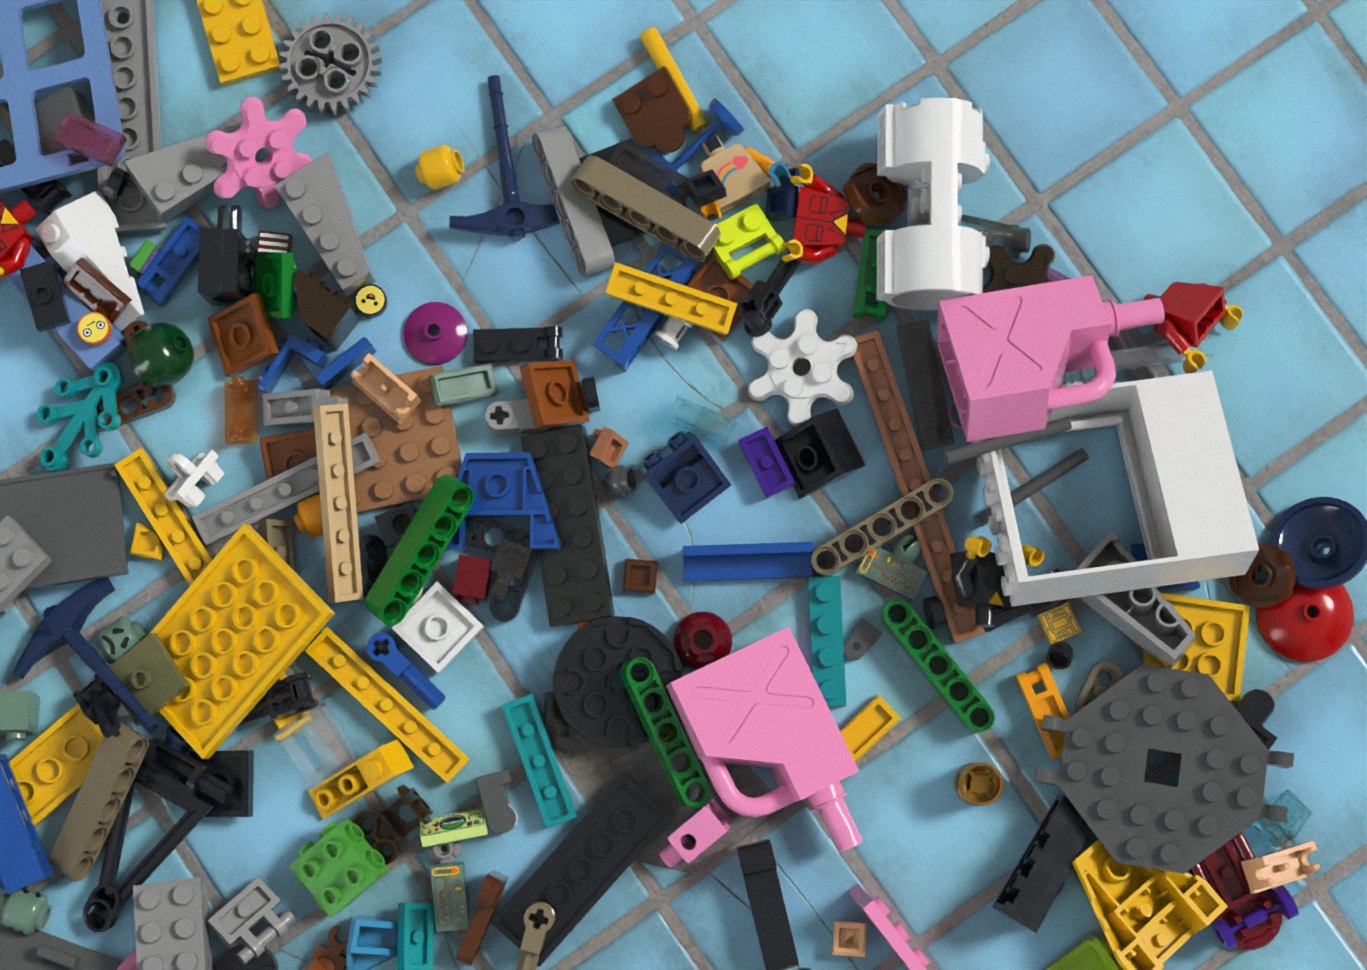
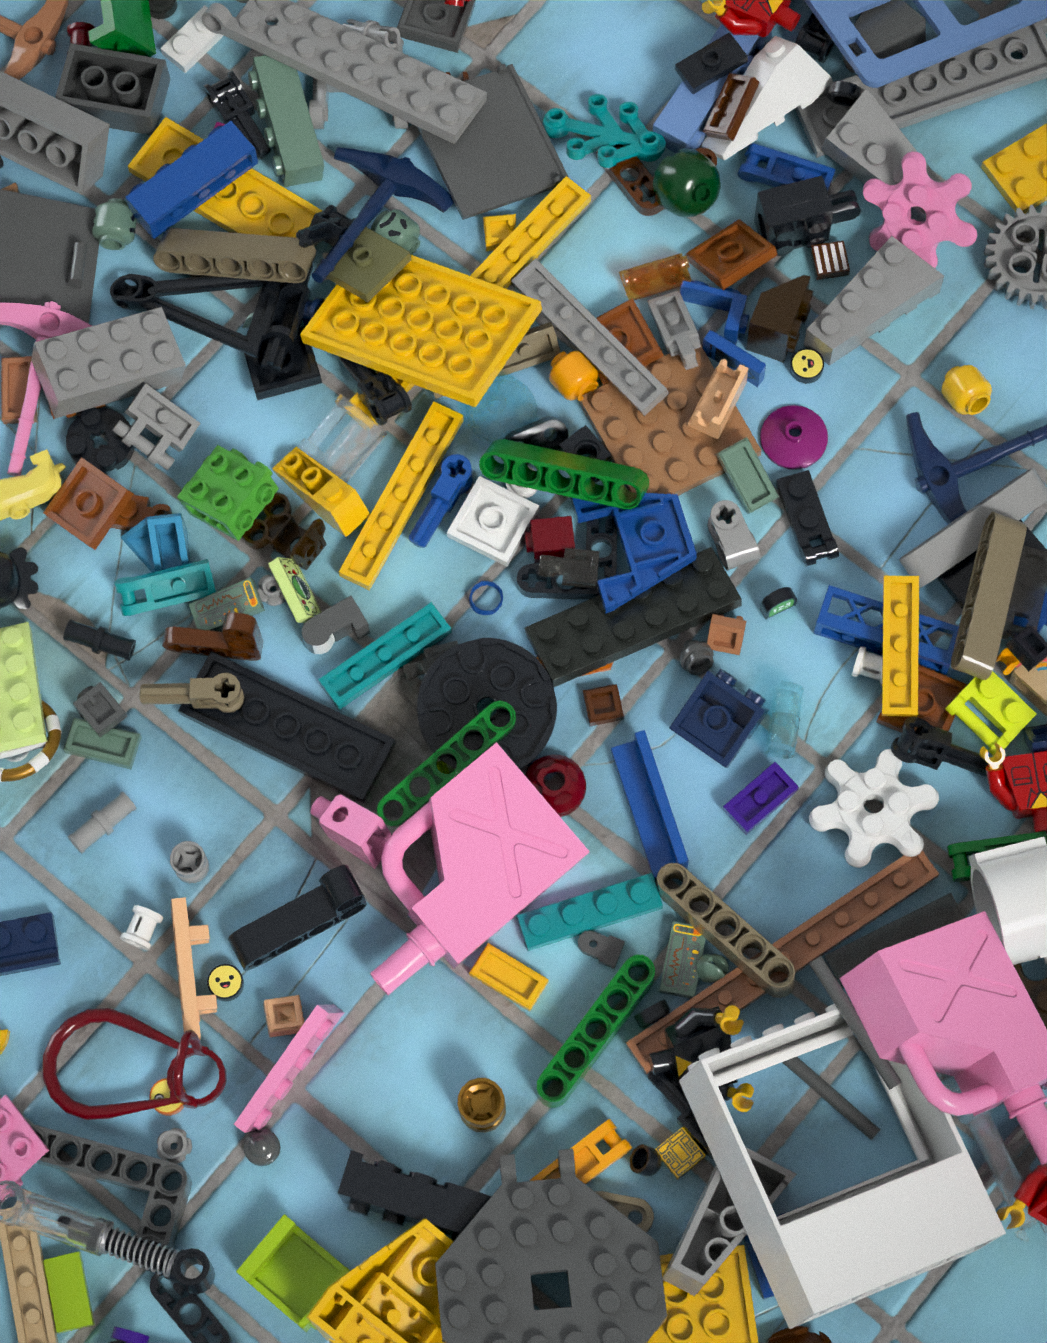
camera: 80 degrees right, 10 degrees down
(89, 139) = (876, 49): clear pink plate -> none
(94, 328) = (693, 115): tile -> none
(144, 256) = (781, 142): bright green tile -> none
(189, 473) = (588, 256): white hips -> none
(275, 282) = (793, 263): green plate -> none
(338, 502) = (588, 383): tan plate -> none
(513, 667) = (484, 612): none -> blue axle
(554, 394) = (765, 562): dark orange plate -> none
(819, 452) = (788, 848): black slope -> none

